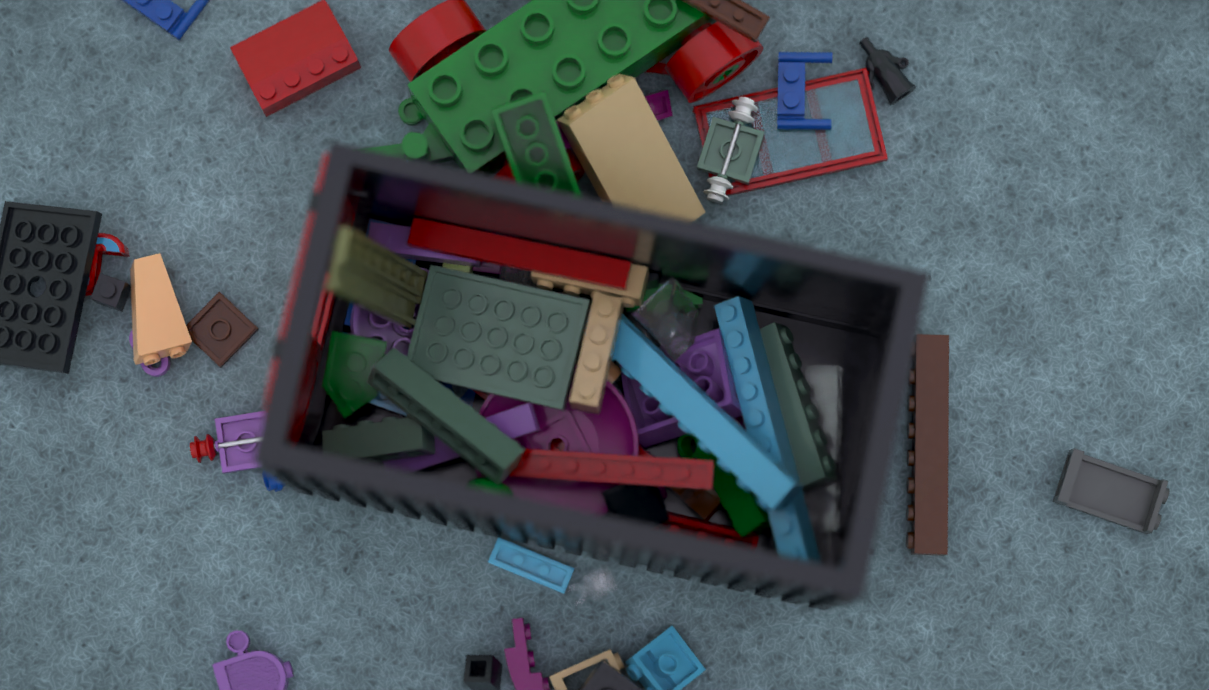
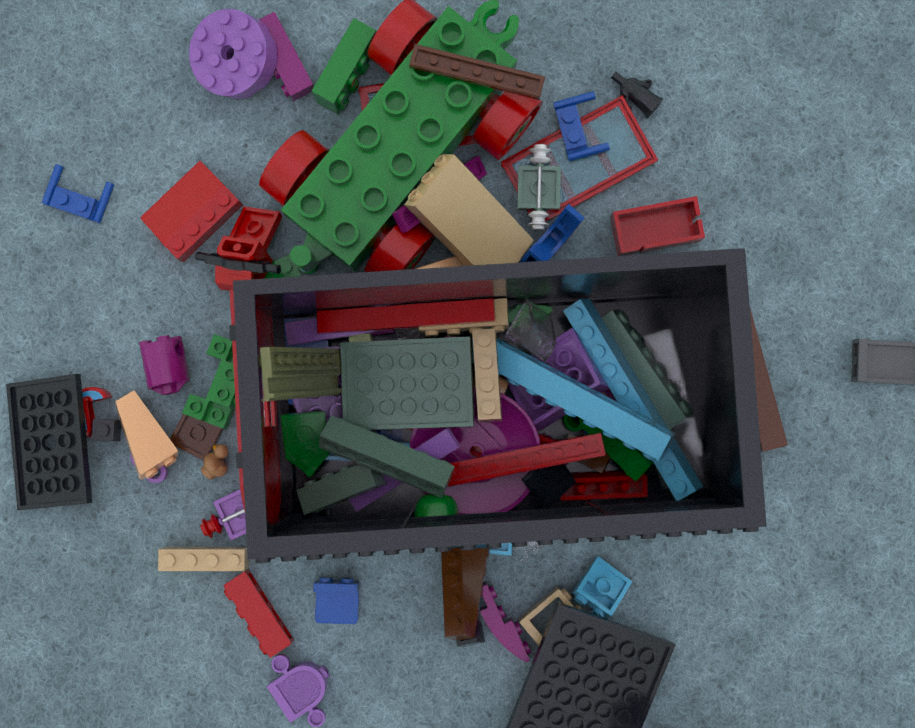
camera: 10 degrees left, 5 degrees up
(182, 485) = (203, 559): none -> tan brick
(207, 232) = (164, 364): none -> magenta cylinder
(229, 572) = (259, 613): none -> red brick
(230, 371) = (214, 464): none -> medium nougat animal
(272, 283) = (220, 400): none -> green bracket
(330, 585) = (336, 600): none -> blue bracket
(348, 117) = (244, 251): none -> red piece
(409, 112) = (289, 229): green tile -> none
(490, 612) = (462, 590): none -> reddish brown wedge
(535, 144) = (395, 232): green brick -> none
(742, 209) = (555, 236): none -> blue arch
(865, 234) = (657, 226): none -> red piece

